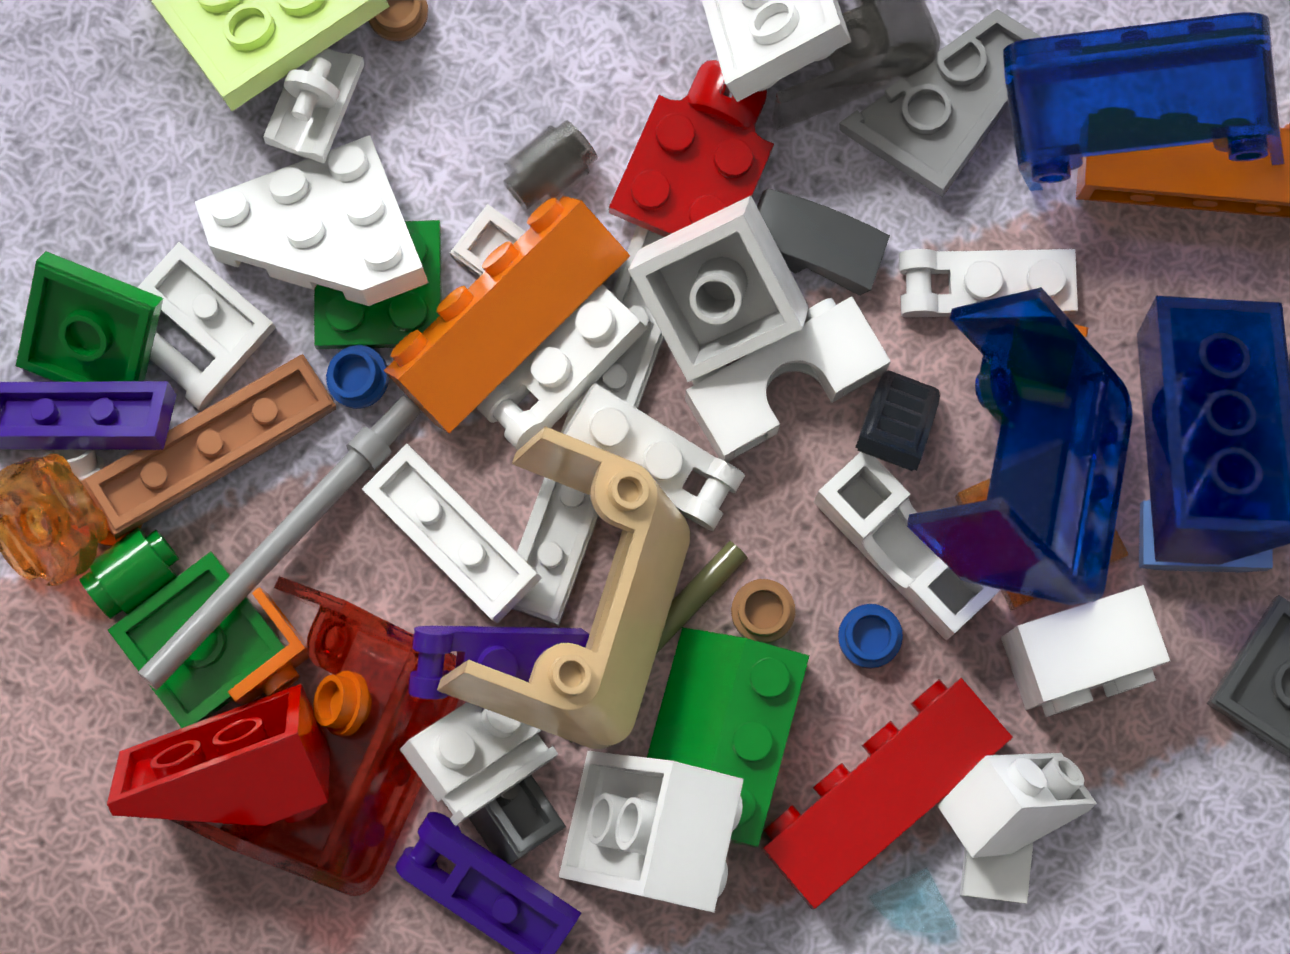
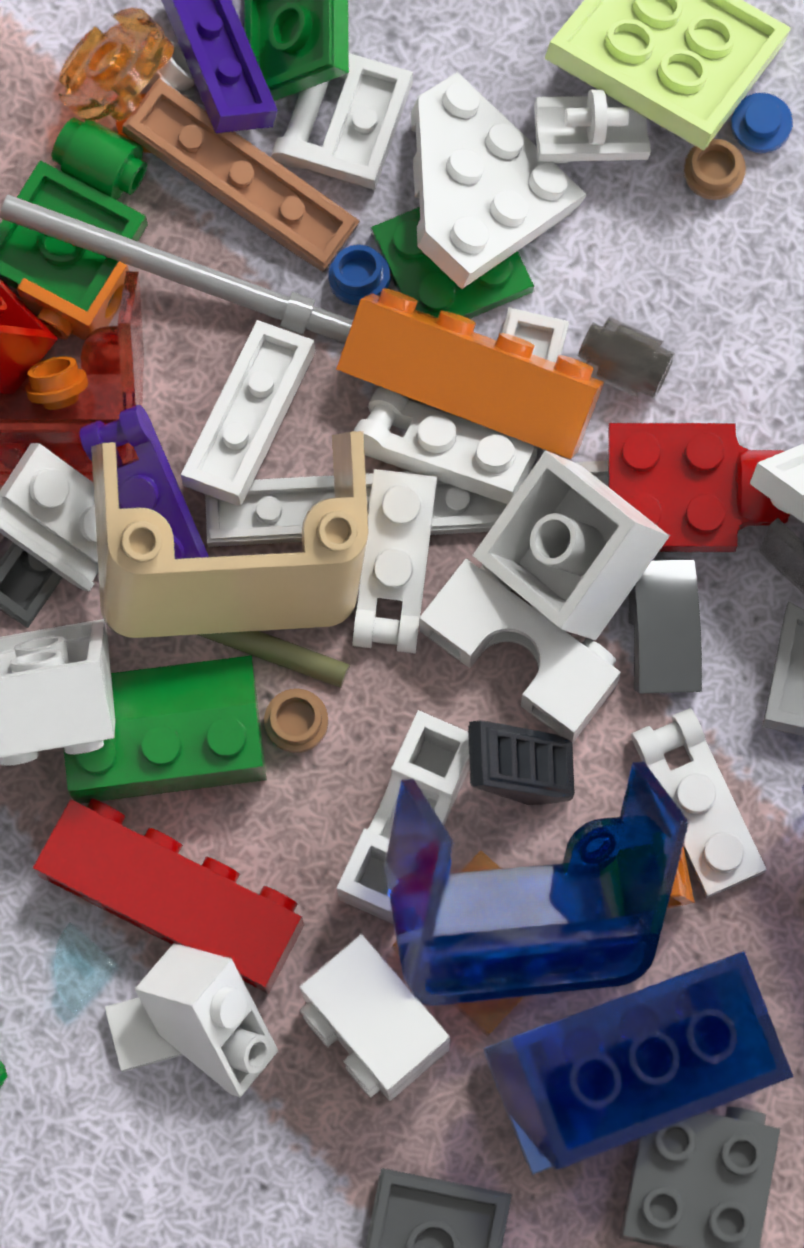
camera: 70 degrees right, 5 degrees down
(870, 636) = (313, 827): blue plate -> none

